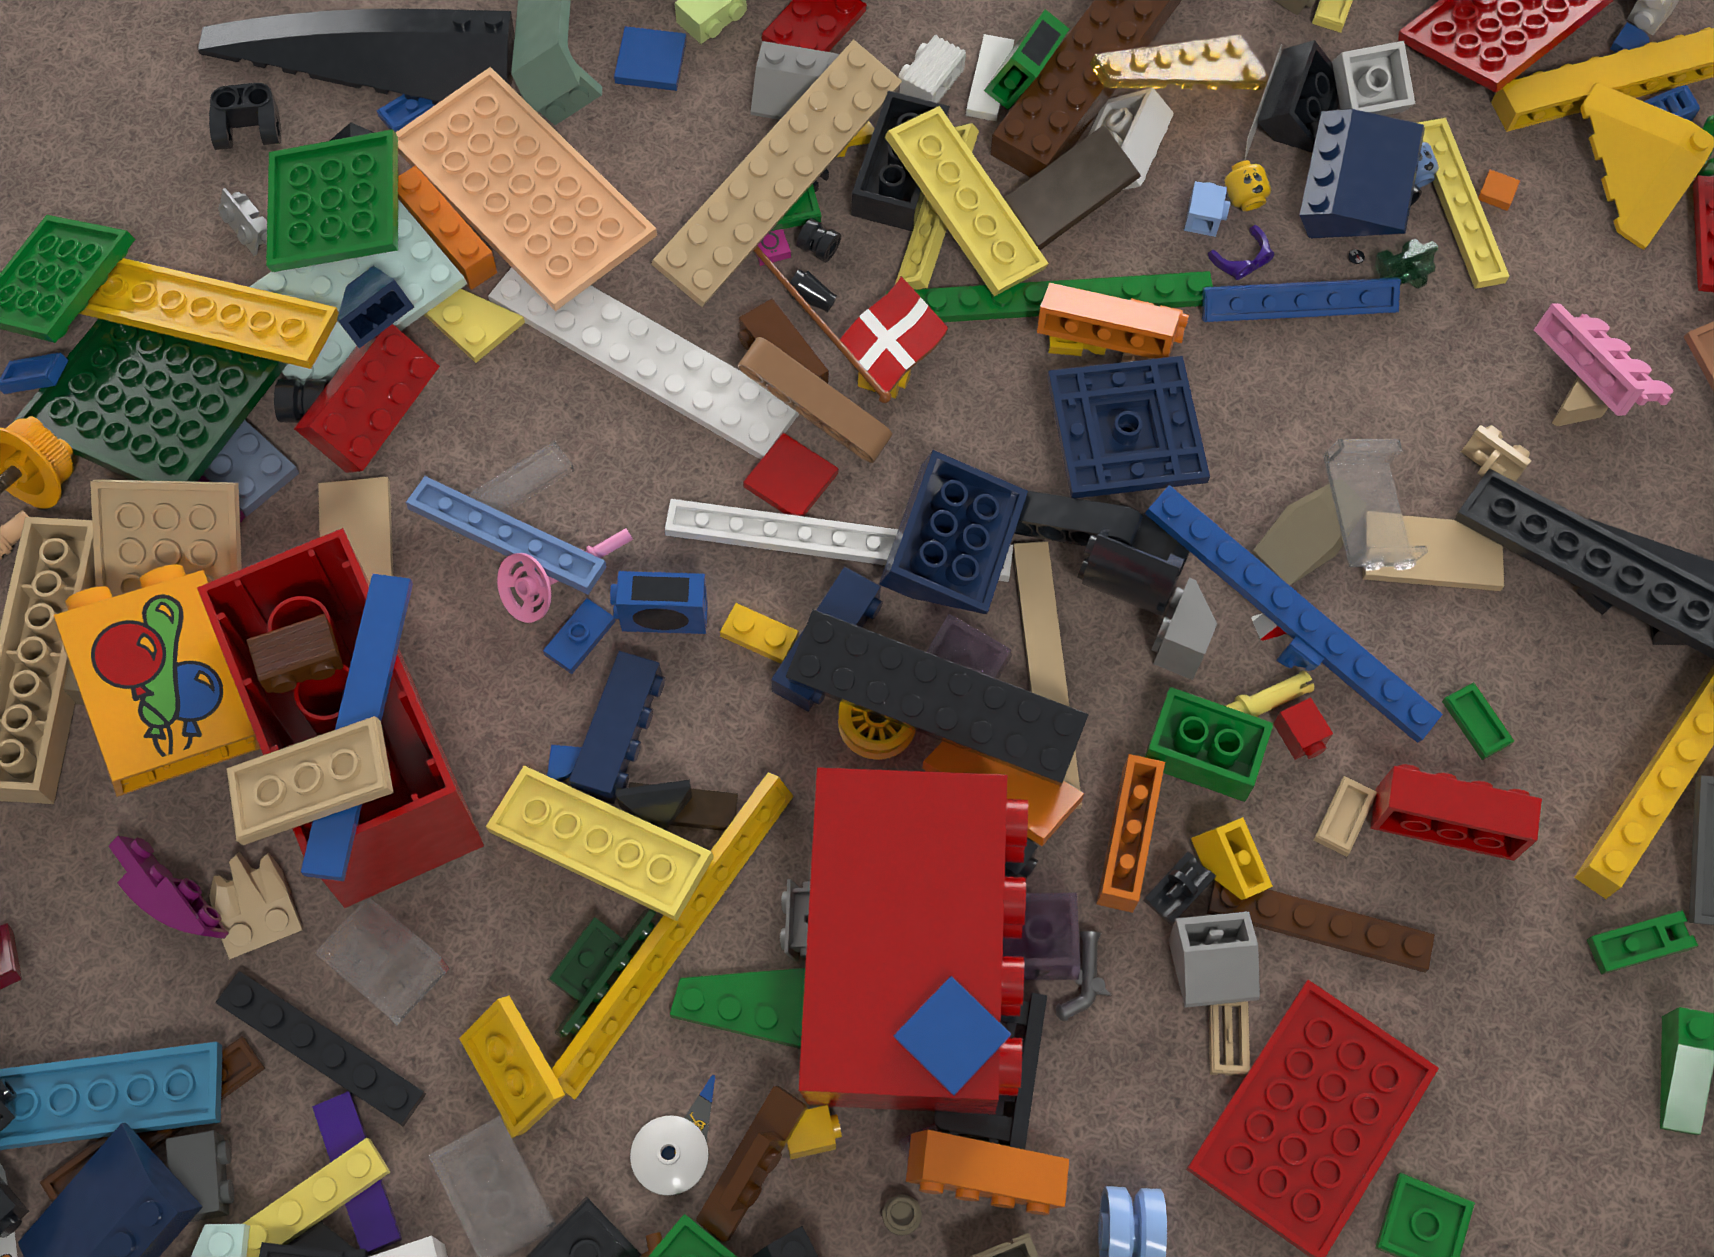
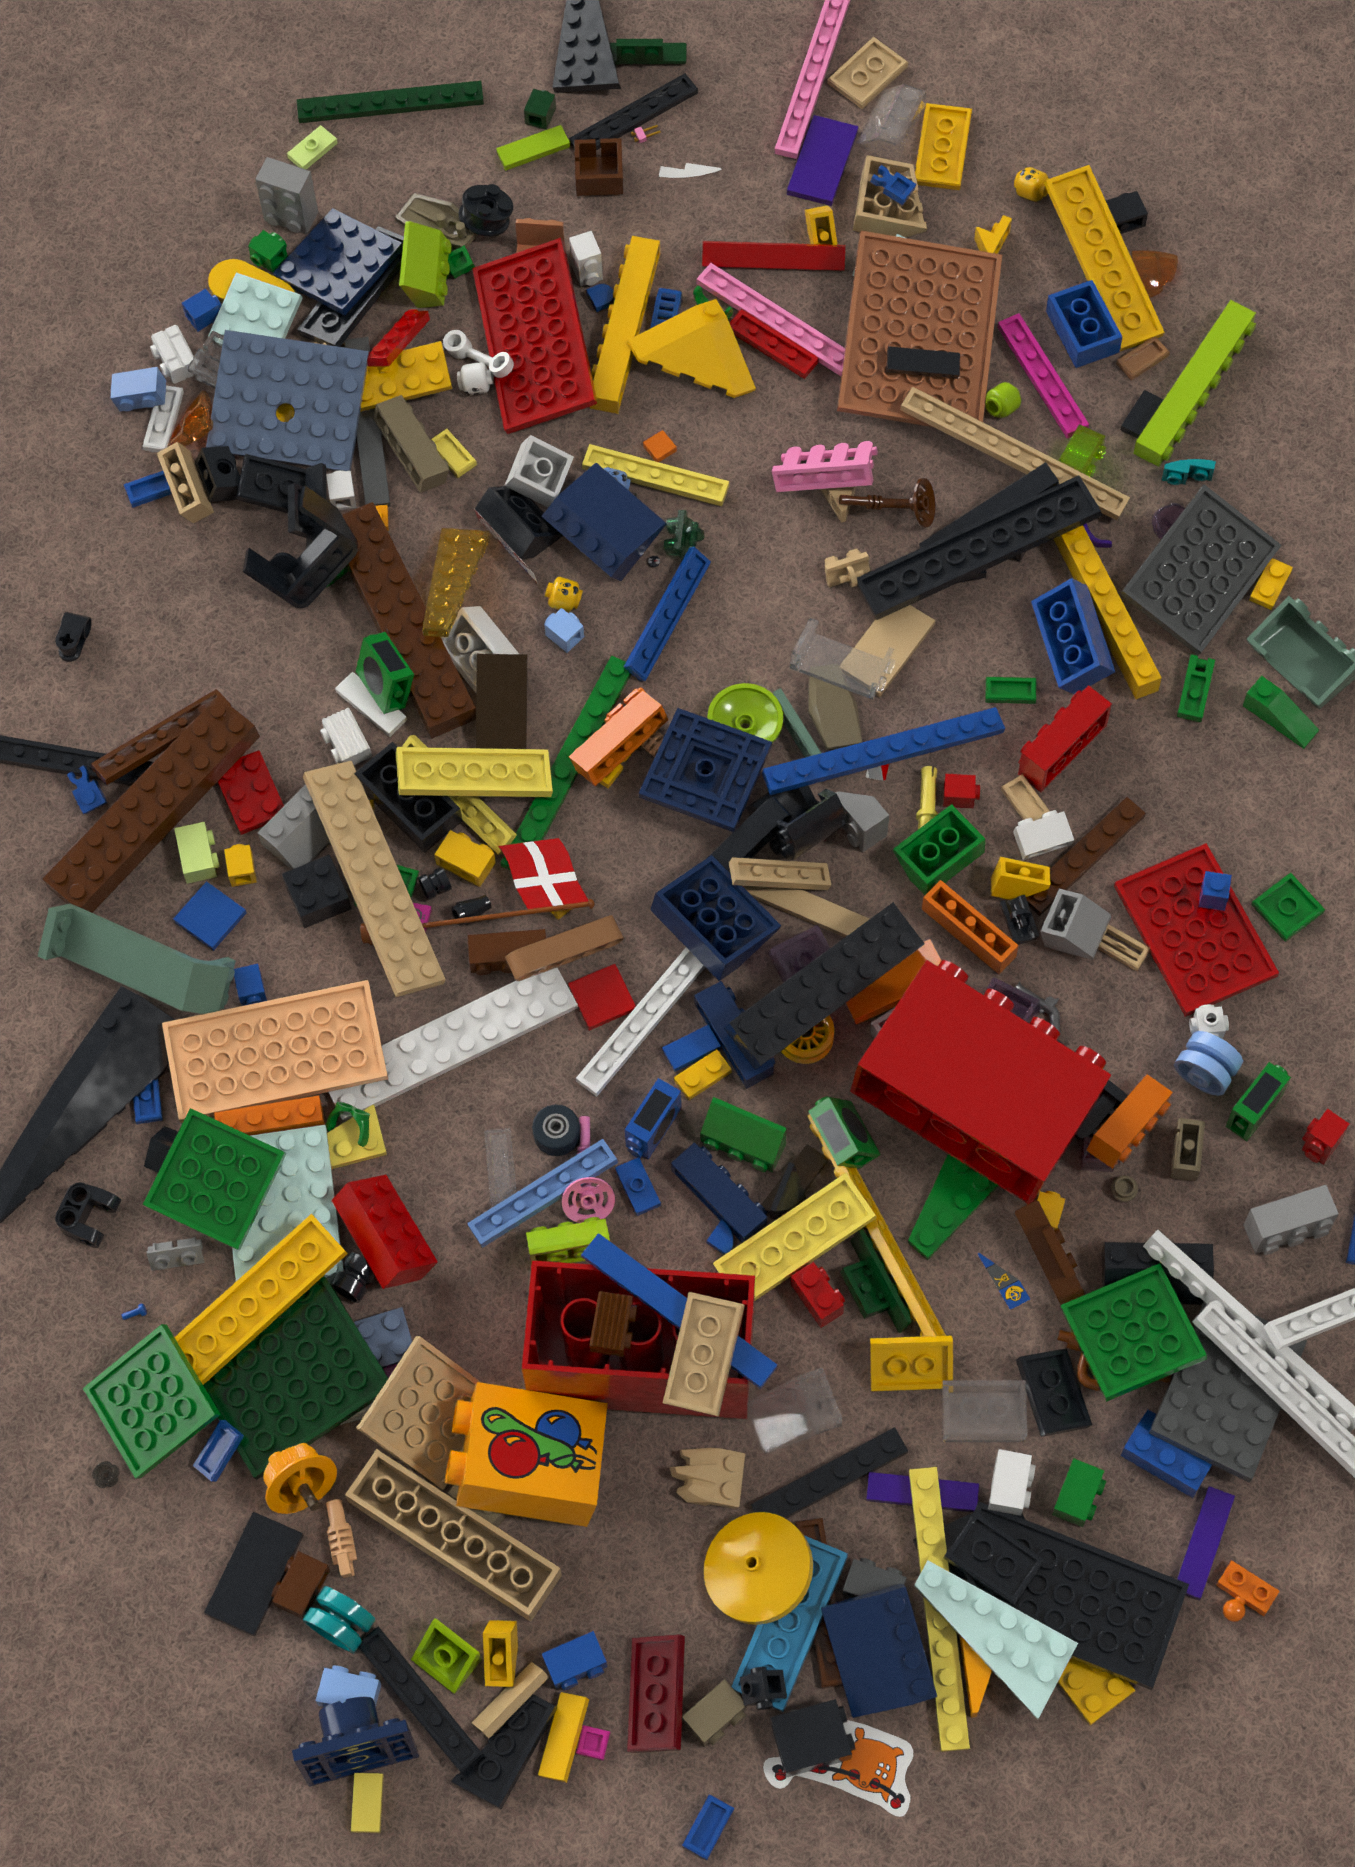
camera: 55 degrees left, 0 degrees up
(151, 1022) = (771, 1586): none -> yellow dish
(160, 895) = (685, 1520): magenta slope -> none
(165, 224) = (140, 1310): none -> blue piece
(365, 514) = (480, 1296): tan tile -> none
(371, 305) = (327, 1185): dark blue slope -> none
(461, 593) = (565, 1241): none -> lime slope
(486, 309) = (359, 1115): none -> green cap
(546, 906) = (817, 1294): none -> red brick
(590, 130) = (249, 985): none -> blue brick
(593, 524) = (556, 1140): none -> black wheel
(672, 1175) = (1010, 1315): white dish -> none
(698, 714) = (743, 1135): none -> green slope
(720, 50) = (240, 865): none -> yellow brick
(731, 130) = (316, 891): none -> black brick
(767, 824) = (844, 1132): none -> green brick
(782, 602) = (691, 1048): none -> blue tile
(796, 907) = (903, 1143): light grey hinge -> none
(867, 253) = (465, 858): none -> yellow brick
(952, 1036) = (1062, 1077): blue tile -> none
(1056, 579) = (779, 874): none -> tan plate
(1180, 1215) = (1210, 1020): none -> white brick
(1240, 269) = (619, 638): dark purple cap -> none
(1244, 433) = (748, 705): none -> lime dish
(1259, 498) = (796, 727): none -> sand green tile
(1300, 655) = (910, 763): blue tile -> none
(1311, 856) = (1043, 834): none -> white brick
(1376, 1112) = (1215, 890): none -> blue brick
(1598, 750) = (1073, 636): none -> blue brick
(1632, 480) = (916, 503): none -> reddish brown dish

